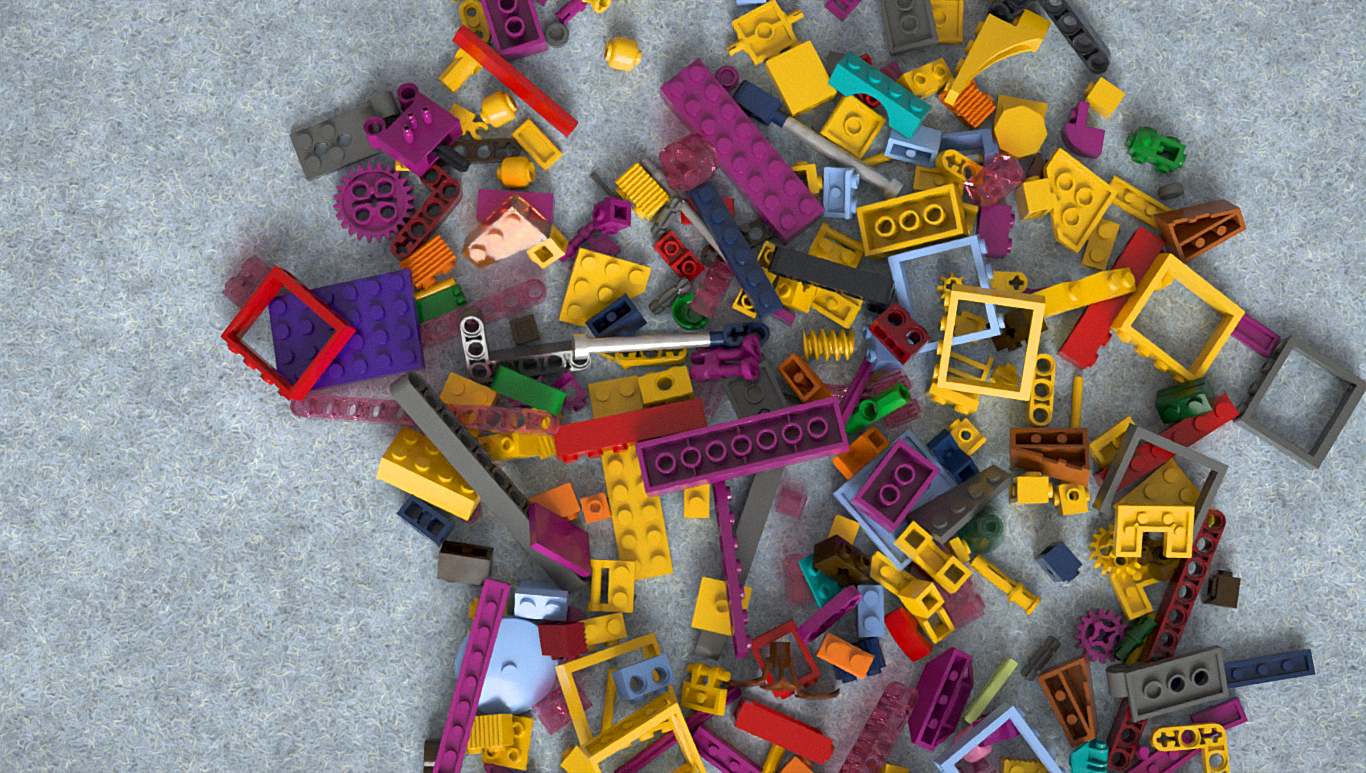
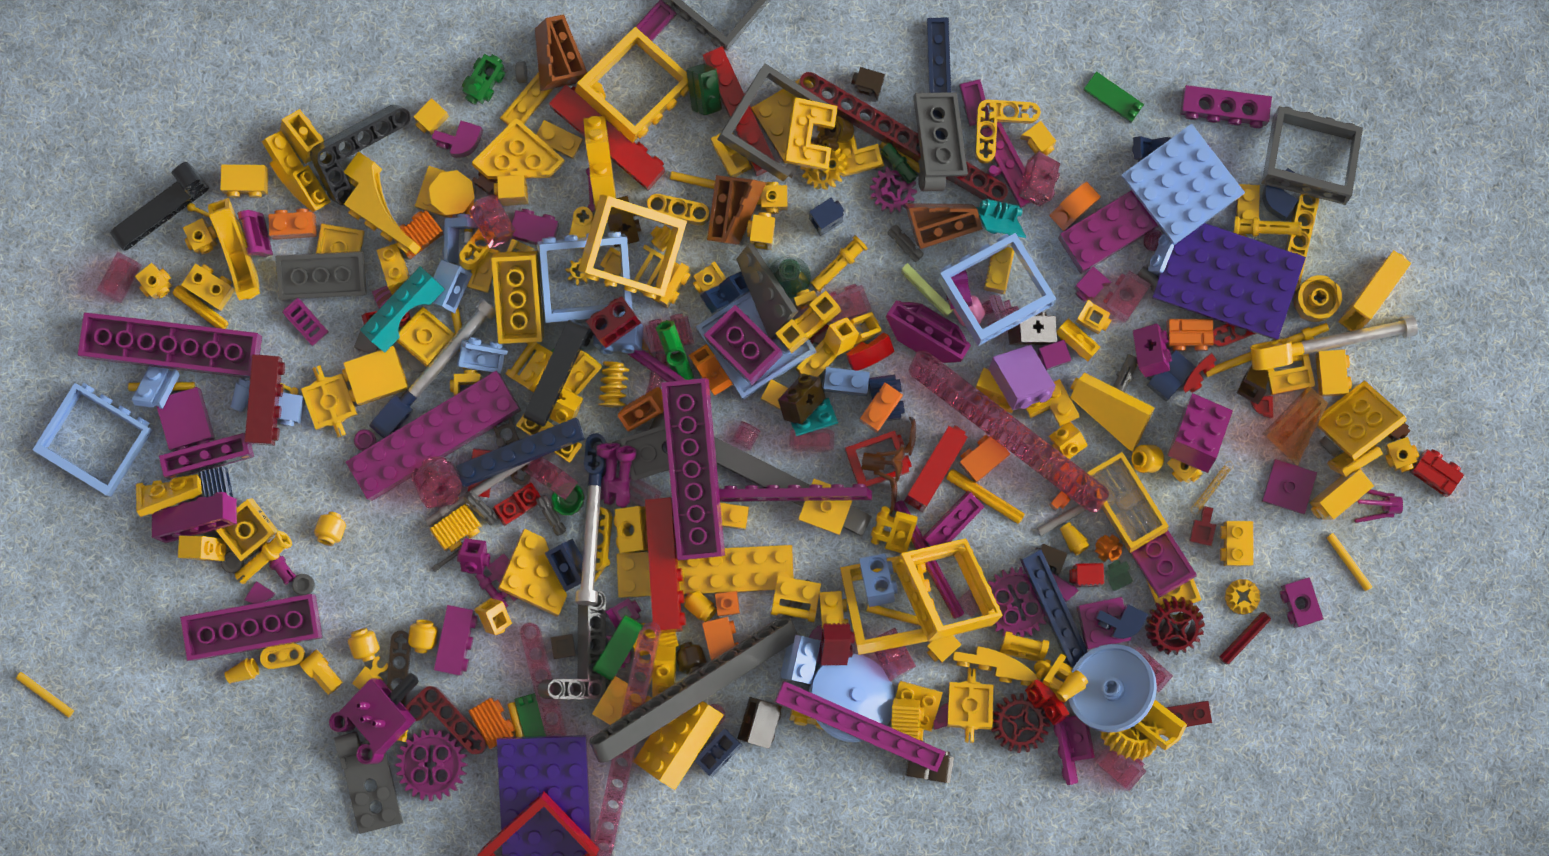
camera: 80 degrees left, 0 degrees up
(506, 232) = (477, 650): clear orange wedge -> none
(515, 81) = (342, 625): red tile -> none
(528, 474) = (690, 658): none -> dark brown head
(536, 144) = (399, 615): yellow tile -> none
(559, 539) = (750, 637): magenta tile -> none
(589, 477) = (699, 606): none -> yellow brick
(784, 316) = (584, 417): magenta tile -> none
(829, 614) = (844, 415): magenta beam -> none

